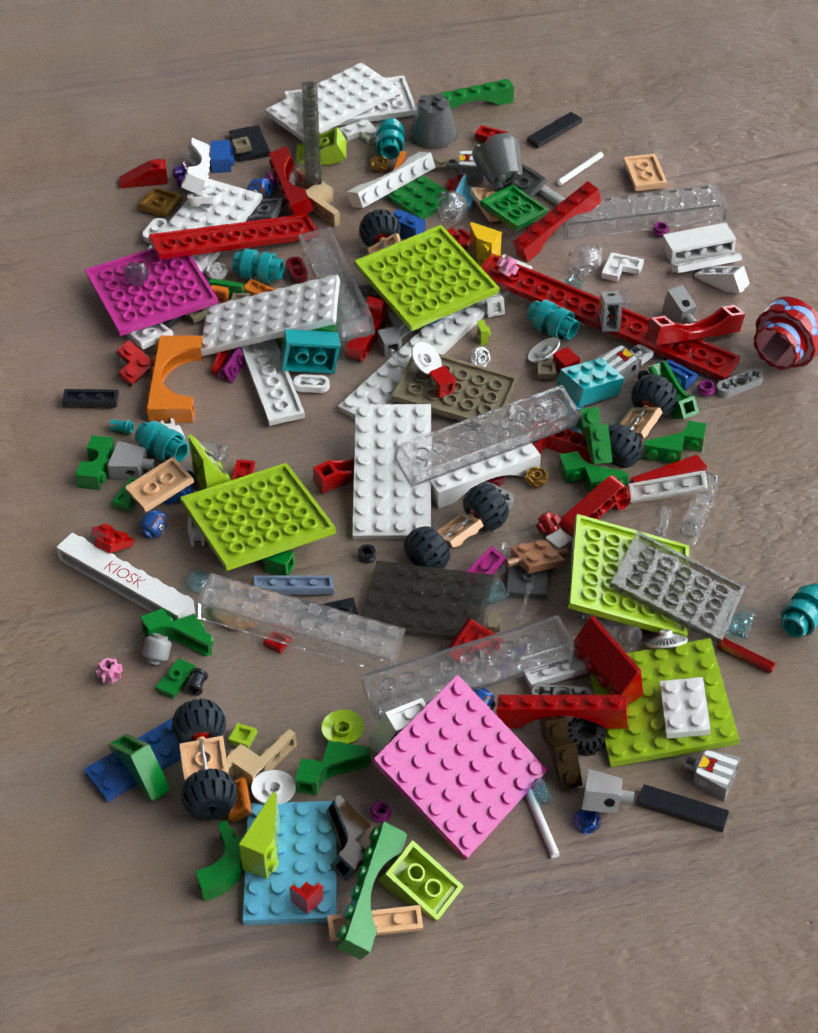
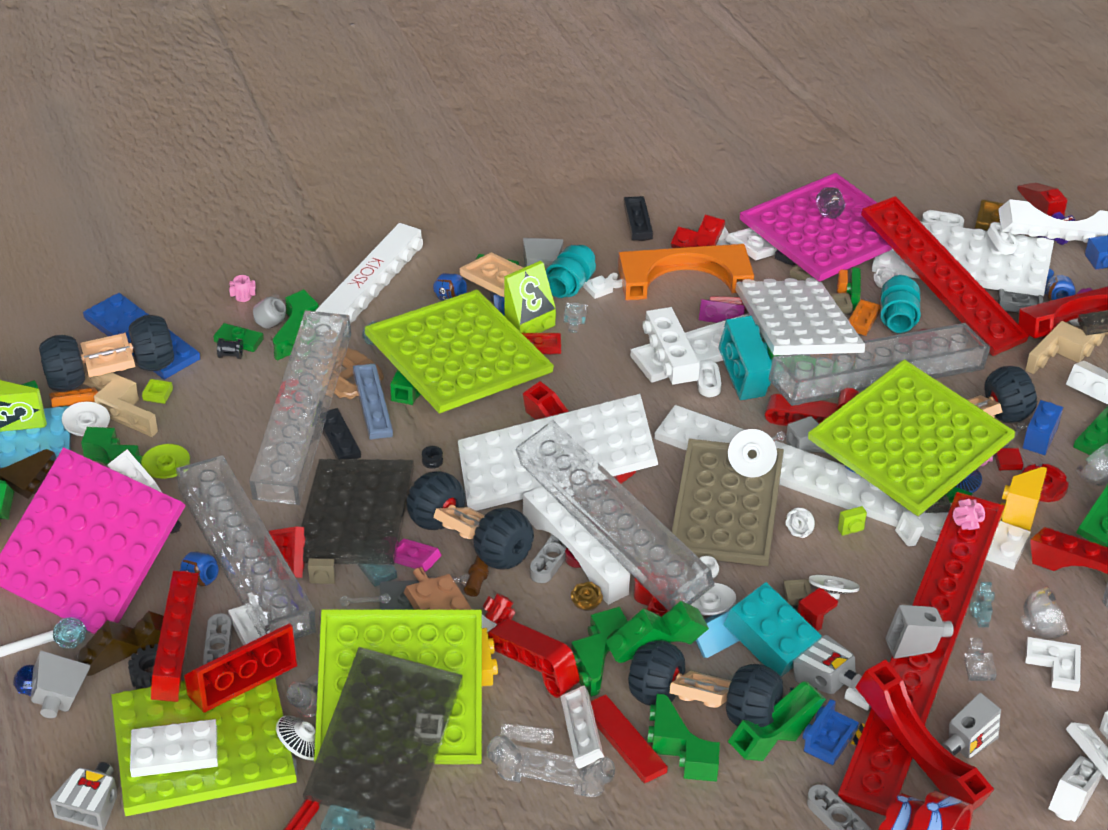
camera: 80 degrees right, 5 degrees down
(94, 473) = (518, 229): green arch -> none
(111, 539) = (421, 265): red plate -> none
(122, 426) = (599, 247): teal pin -> none
(142, 765) = (107, 313): green arch -> none
(280, 391) = (671, 345): none -> white brick
(444, 381) = (718, 475): red panel -> none
(505, 534) = (477, 574): none -> reddish brown pin
(554, 320) = (892, 584): teal piece -> none
(683, 808) = (41, 772): black tile -> none
(706, 388) = (813, 769): magenta plate -> none

